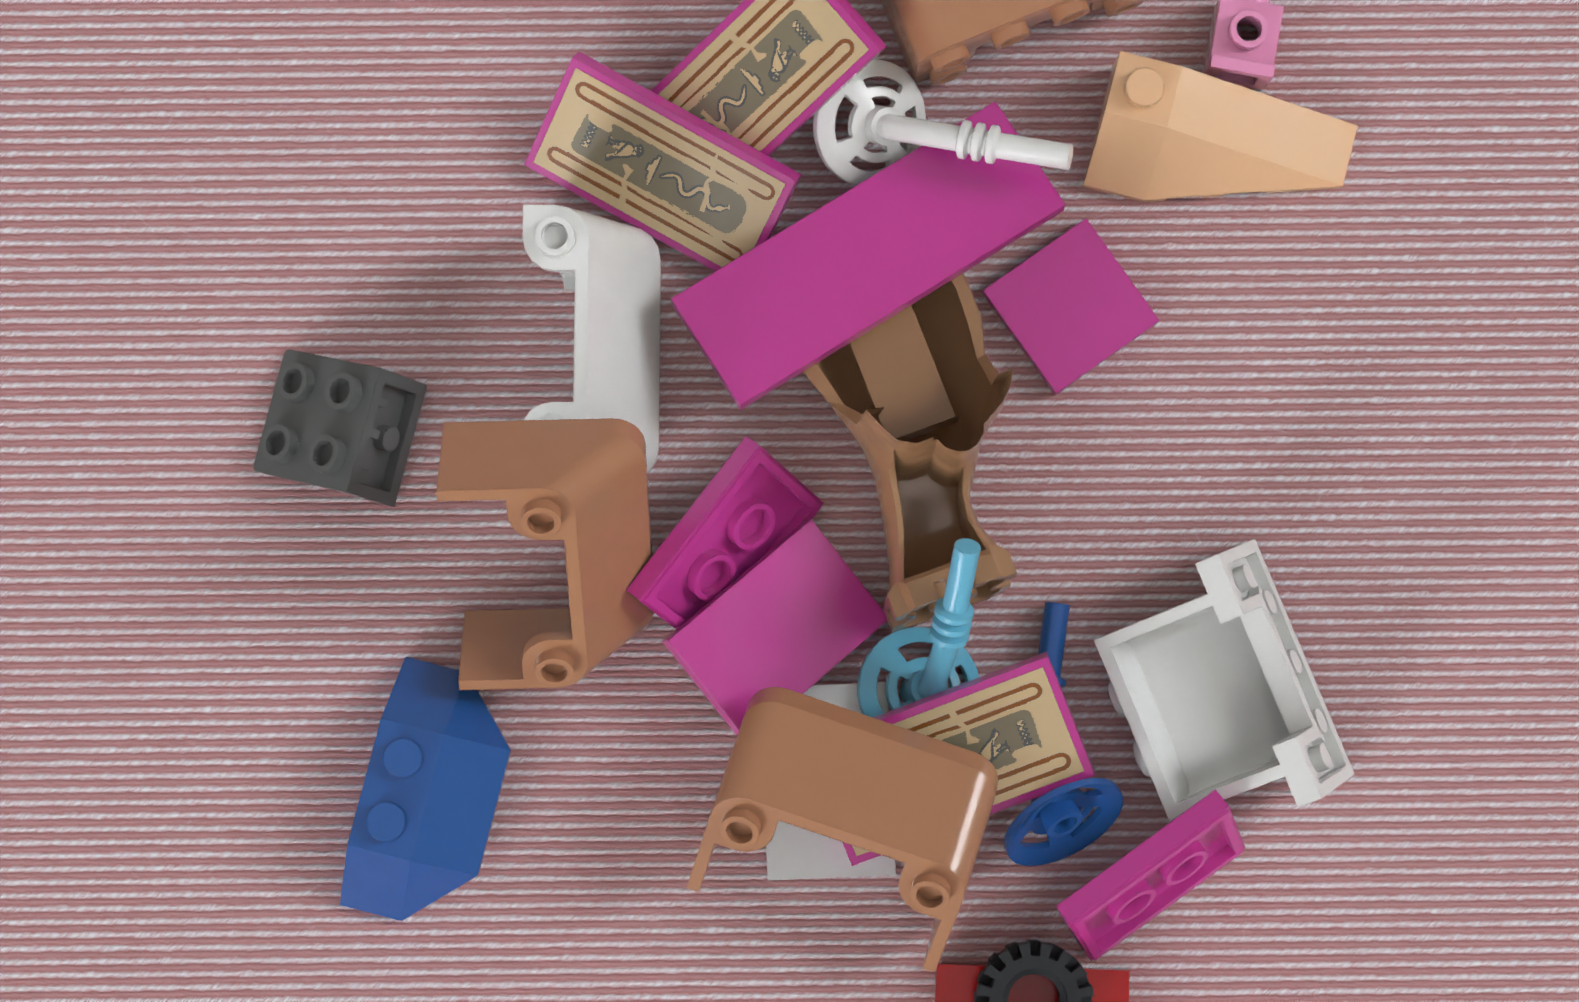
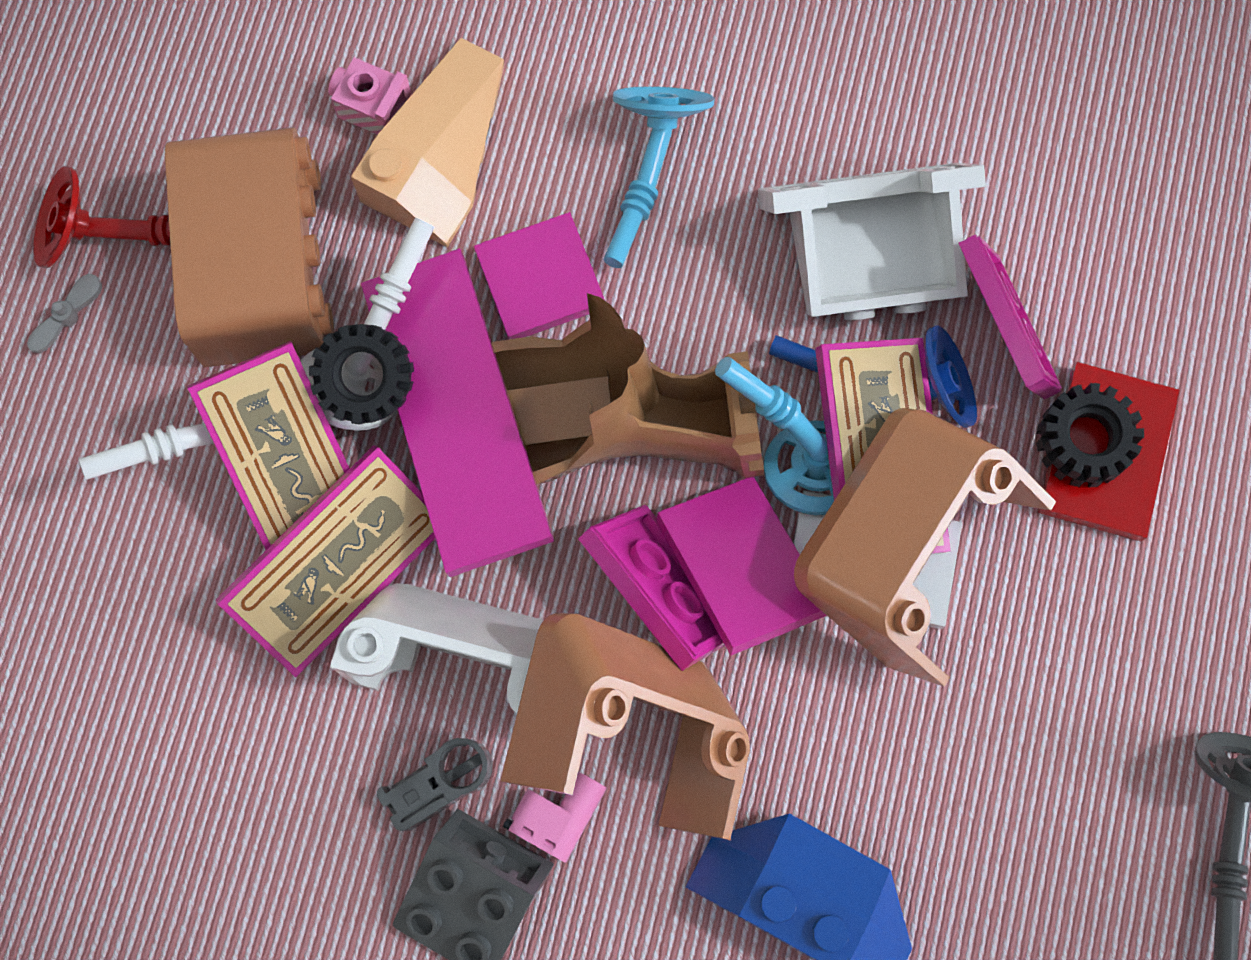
camera: 75 degrees left, 10 degrees down
(420, 503) = (554, 826): none -> bright pink piece
(441, 349) = (431, 789): none -> dark grey piece
(835, 130) = (328, 373): none -> black tyre
(1309, 398) = (662, 113): none -> medium azure dish

